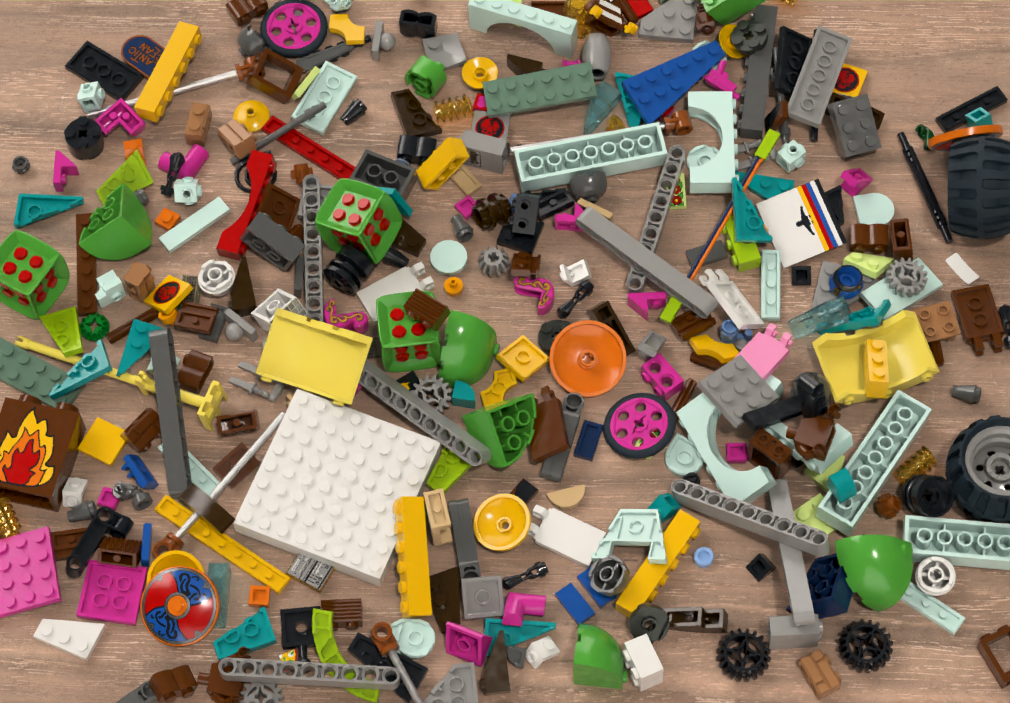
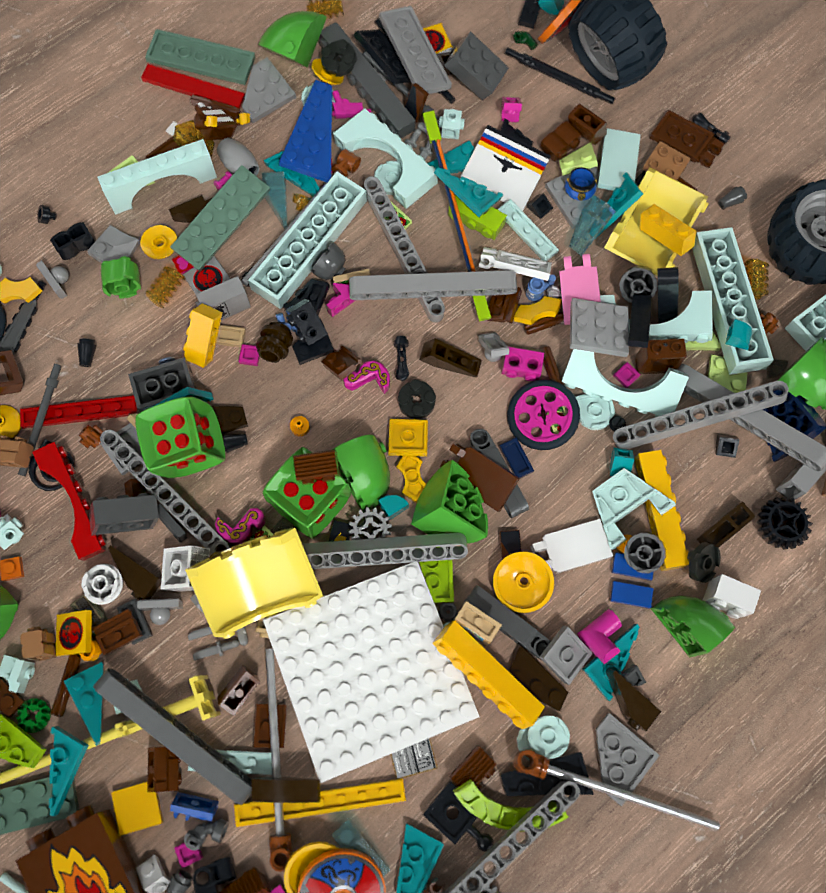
camera: 50 degrees left, 10 degrees up
(146, 545) = (260, 865): blue tile -> none
(194, 225) = (39, 554): light aqua tile -> none
(195, 371) = (158, 678): reddish brown brick -> none
(259, 596) = (394, 818): orange plate -> none
(279, 205) = (98, 480): reddish brown plate -> none
(291, 655) = (468, 848): tile -> none
(305, 82) = (23, 359): yellowish green tile -> none
(330, 86) = (47, 347): light aqua tile -> none
(348, 269) = (207, 483): black wheel -> none
(400, 281) = (257, 468): white tile -> none
(412, 116) = (137, 318): dark brown wing -> none
(416, 149) = (166, 341): black brick -> none
(448, 257) = (274, 406): light aqua tile -> none
(462, 229) = (263, 375): dark grey cone -> none
(467, 643) = (591, 701): dark pink slope -> none
(500, 264) = (315, 374): light grey gear -> none
(511, 581) = (572, 618): black piece -> none
(541, 651) = (647, 655): white bracket -> none
(568, 497) = (545, 517): tan tile -> none
(575, 273) = (383, 337): white bracket -> none
(588, 358) = (458, 396): orange dish -> none
(642, 301) = (454, 318): dark pink slope -> none
(703, 557) = (682, 474): light blue tile -> none
(704, 21) = (291, 70): reddish brown hips -> none
(716, 254) = (454, 251): dark grey tile -> none
(815, 434) = (693, 313): reddish brown torso -> none
(873, 208) = (541, 119): light aqua tile -> none
(906, 277) = (618, 147): light grey gear -> none
(927, 495) = (792, 292): black wheel -> none
(961, 268) = (639, 114): white sticker -> none

